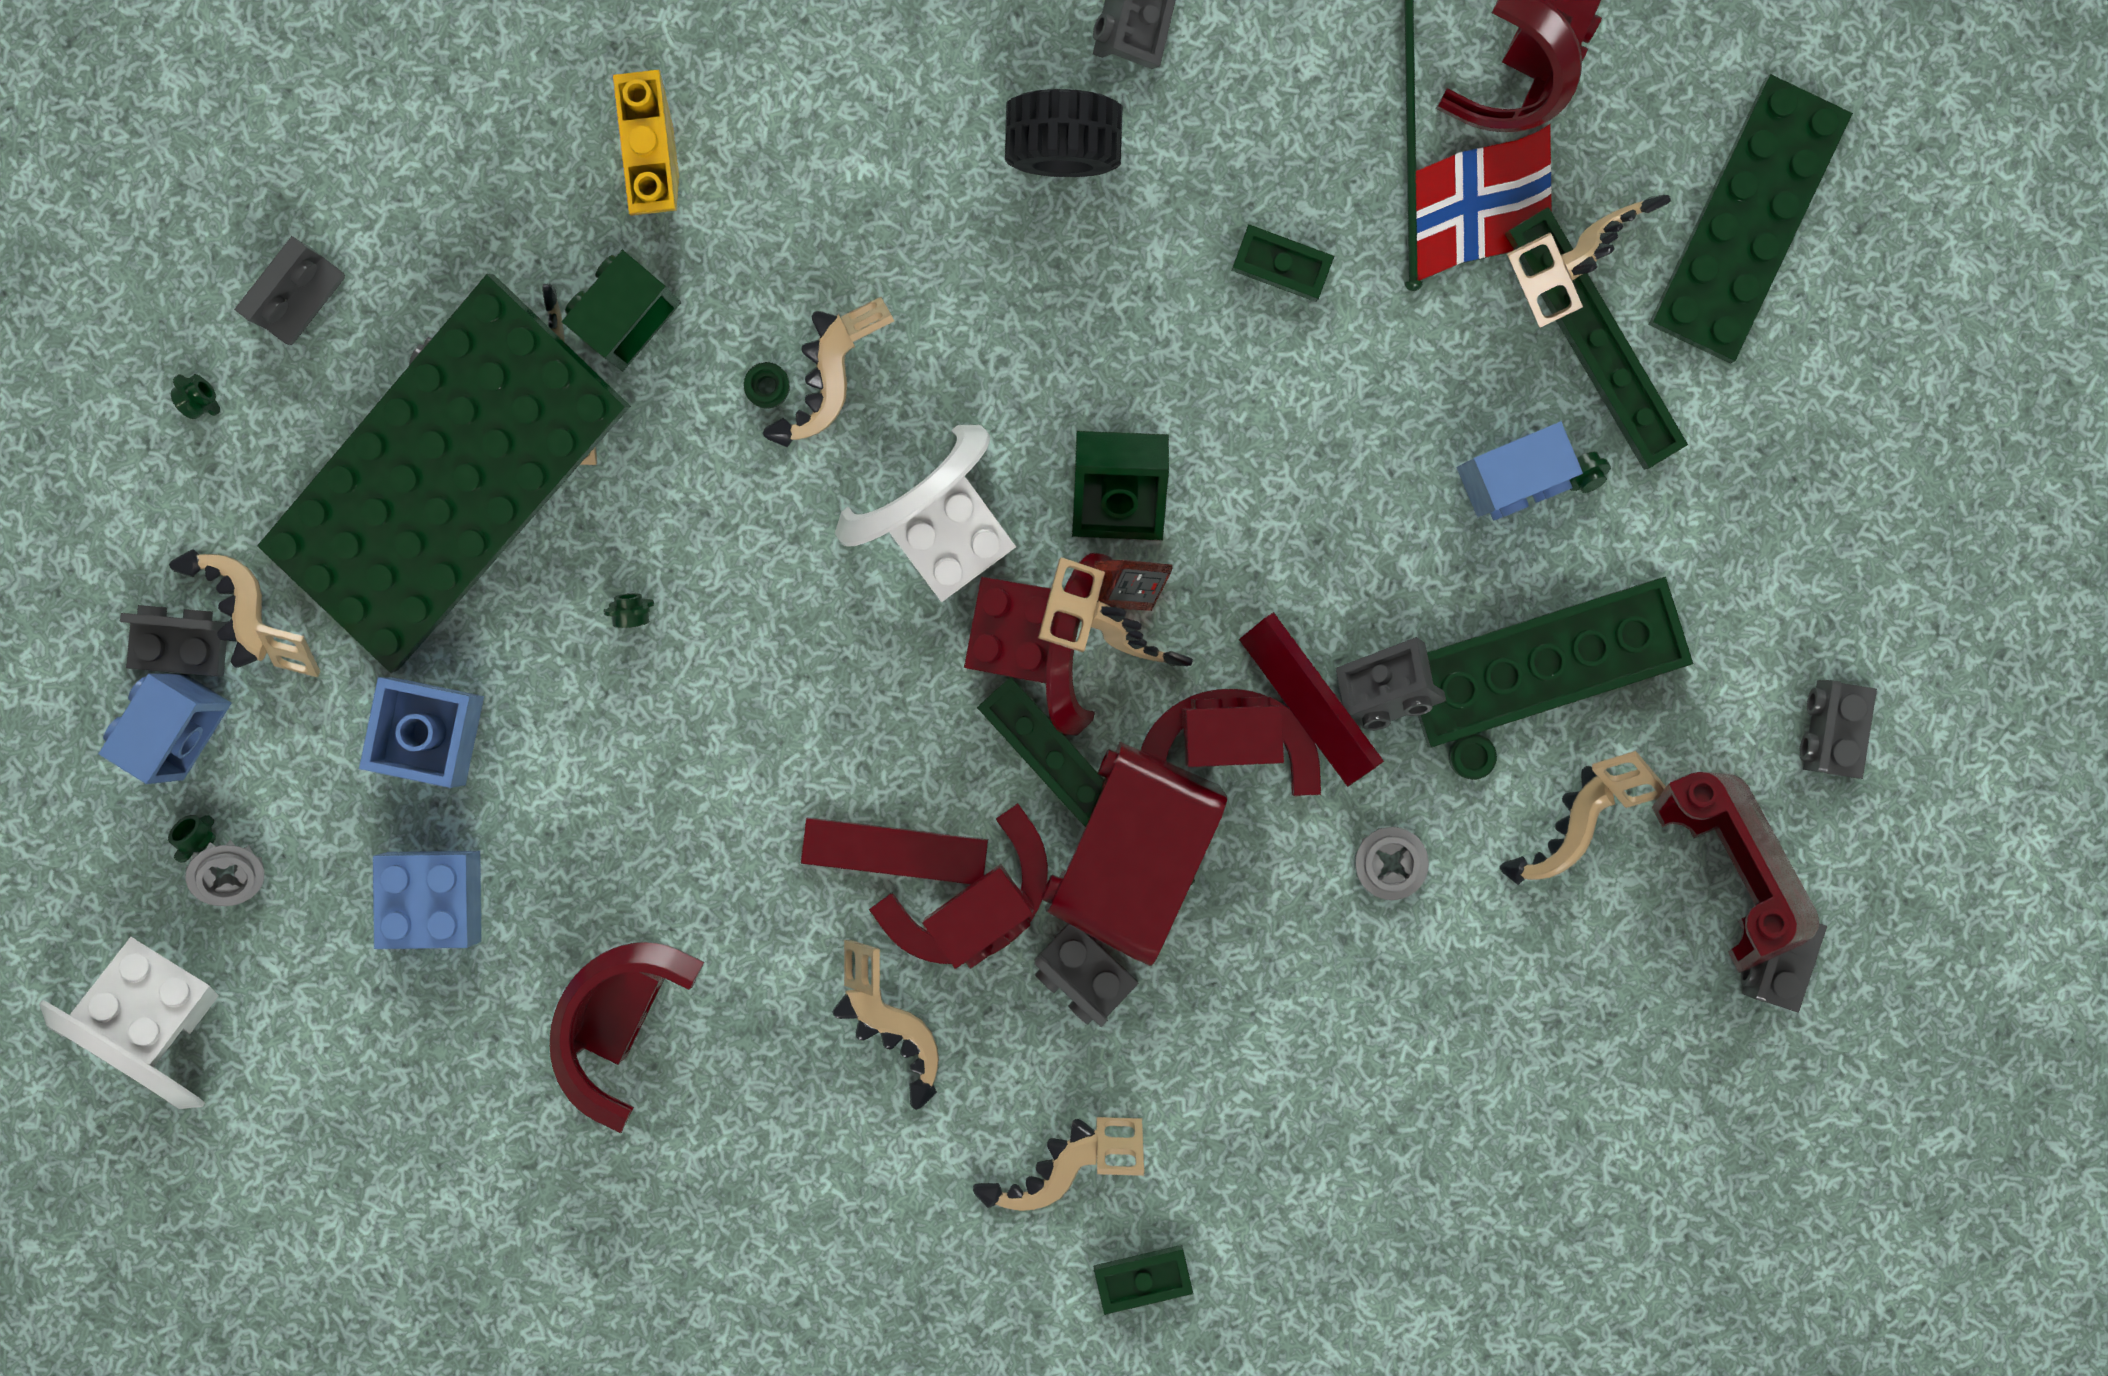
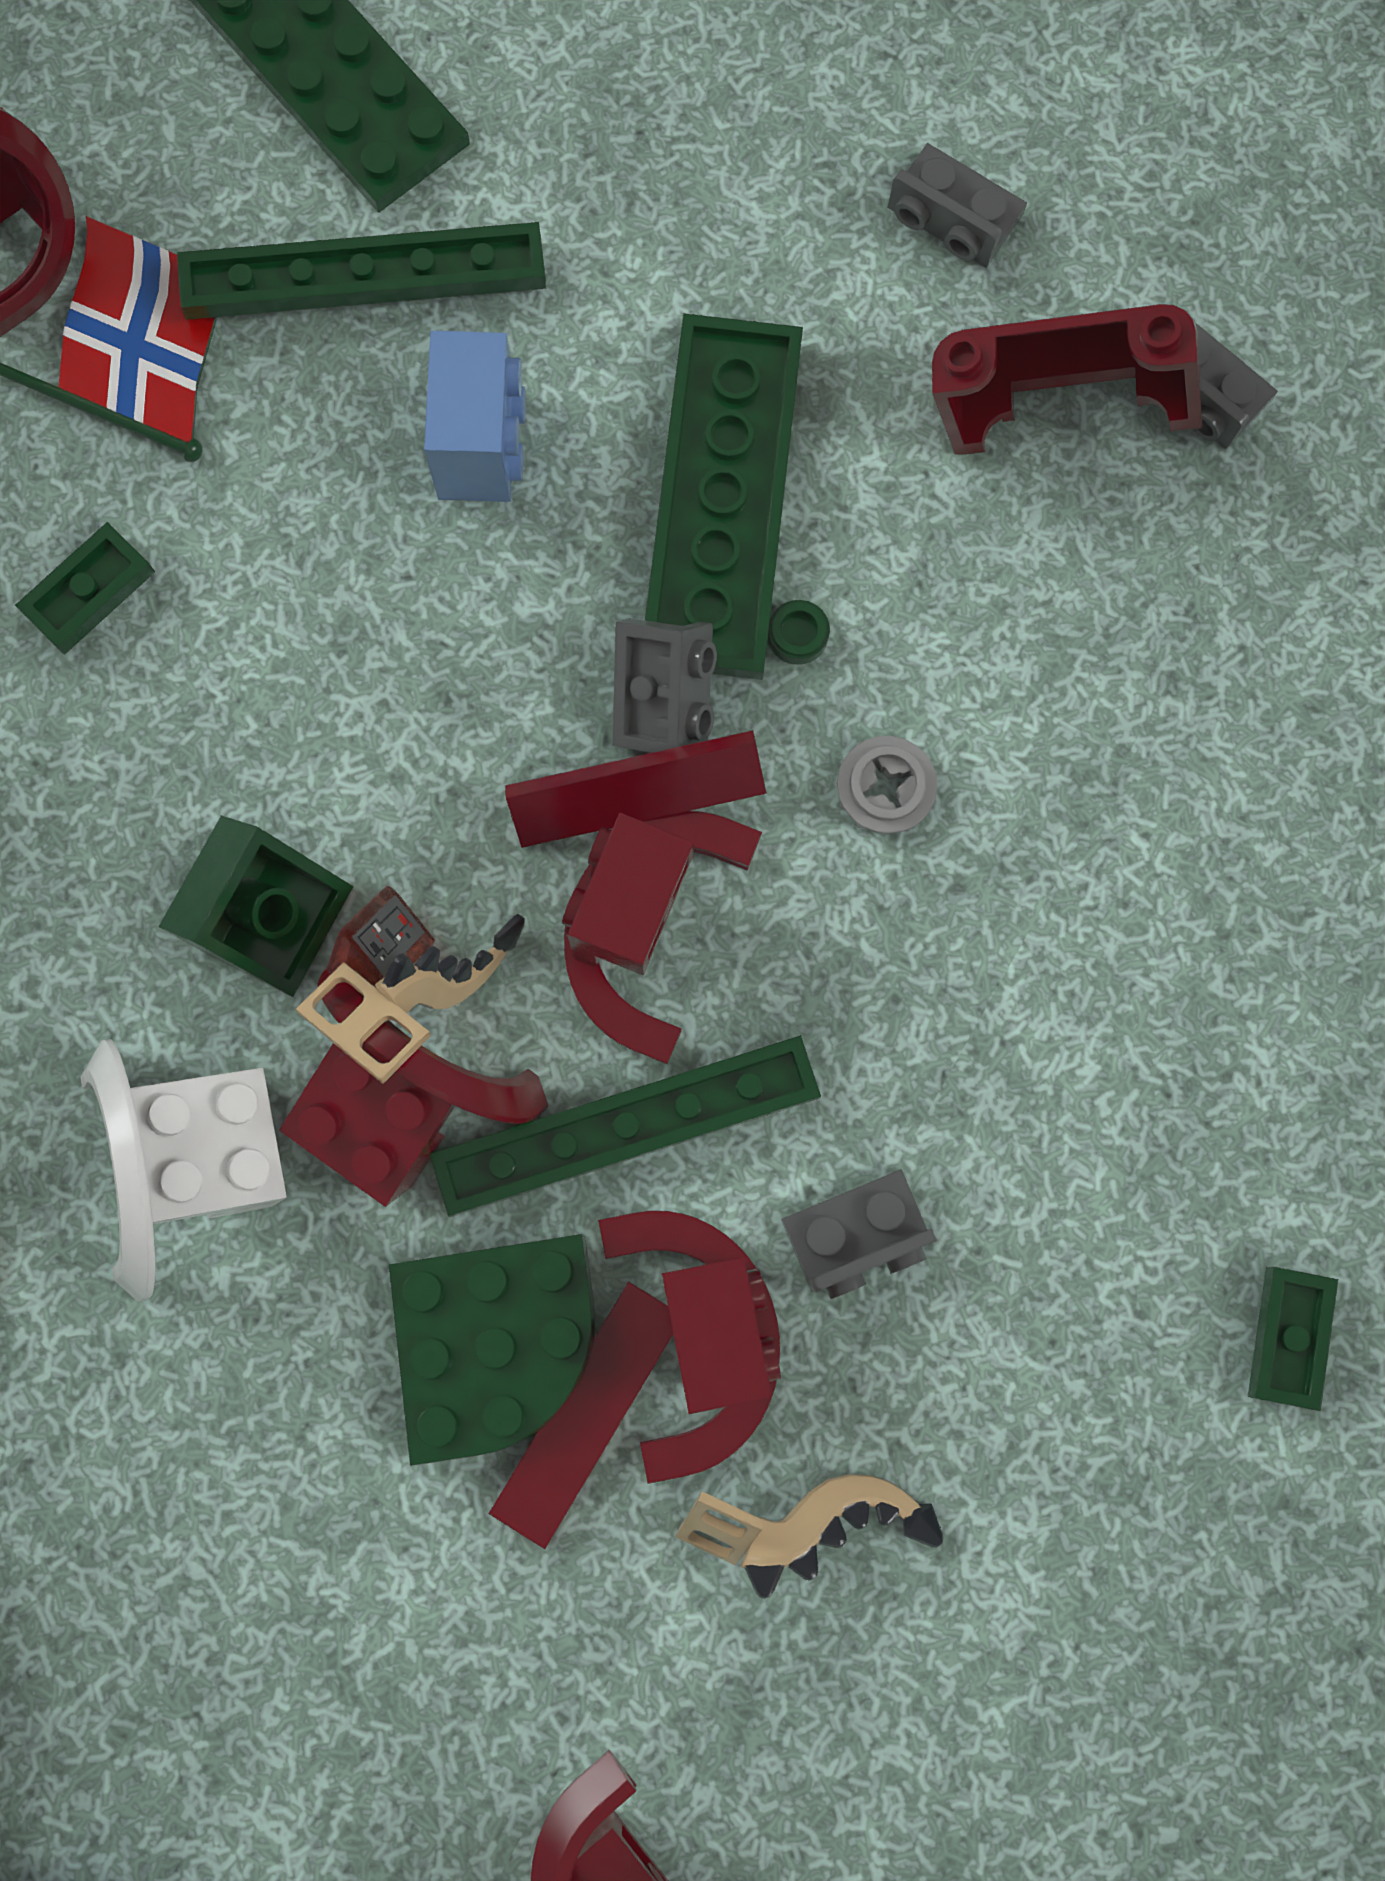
camera: 70 degrees left, 10 degrees down
(629, 610) = (97, 1630): dark green plate -> none
(910, 771) = (490, 1343): none -> dark green plate
(1069, 1156) = (1092, 1364): tan piece -> none
(1137, 853) = (732, 1091): dark red windscreen -> none
(1584, 810) = (924, 527): tan piece -> none
(1591, 246) = (251, 229): tan piece -> none
(1593, 475) = (523, 344): dark green plate -> none

